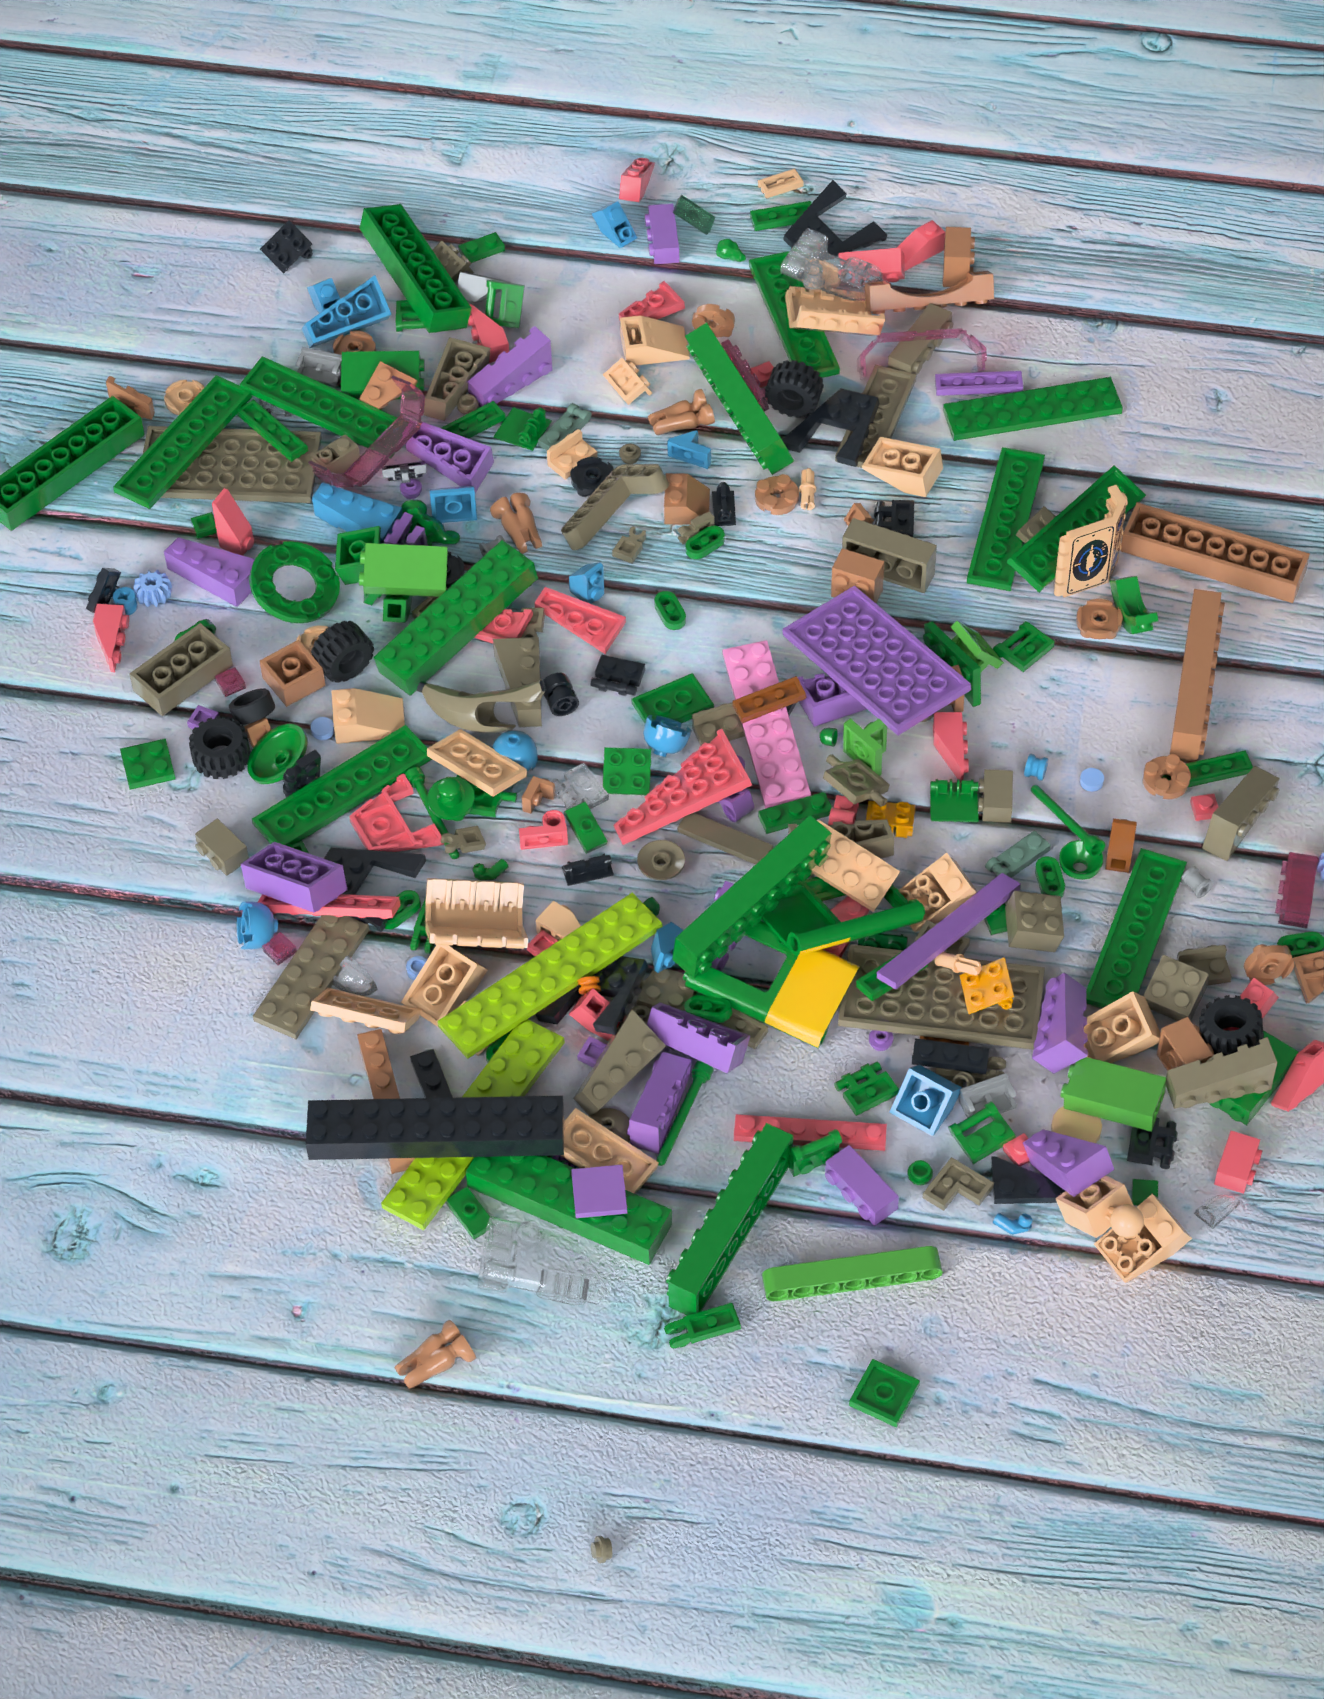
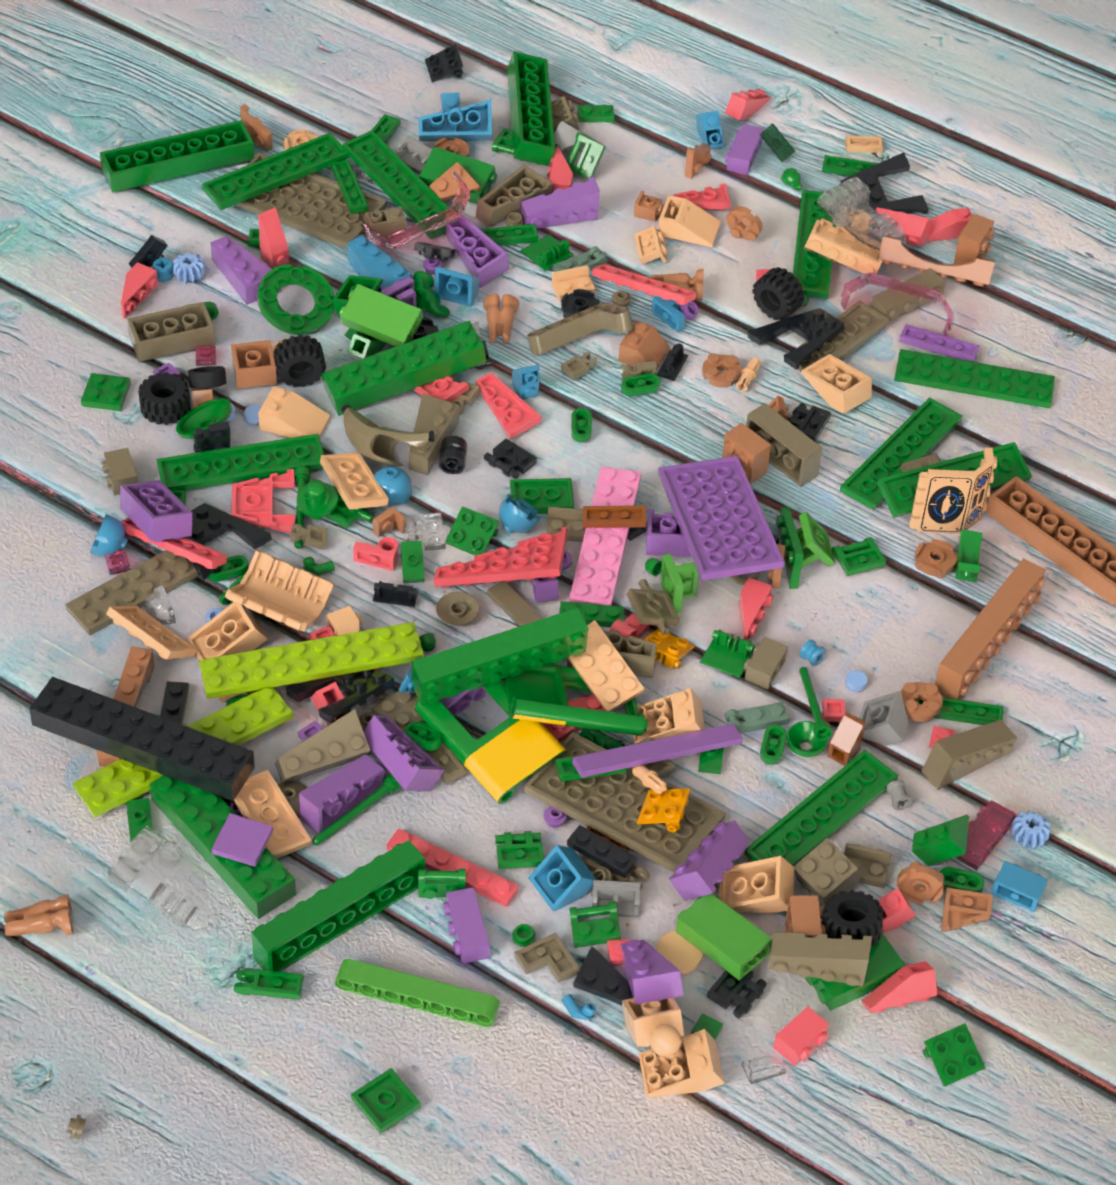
camera: 20 degrees right, 5 degrees down
(267, 345) = (386, 127): none -> green plate
(588, 983) = (335, 676): orange bush -> none
(600, 338) = (647, 207): none -> nougat brick
(621, 263) = (696, 159): none -> nougat wing
(650, 428) = (643, 283): none -> coral plate
(708, 439) = (689, 310): none -> medium lavender plate
(738, 400) = (728, 287): green brick -> none
(743, 369) = (748, 268): clear pink plate -> none
(1034, 921) = (737, 772): dark tan brick -> none
(1089, 818) = (833, 710): none -> coral plate
(1143, 805) = (885, 719): none -> light grey slope
(1265, 911) = (941, 841): none -> green slope

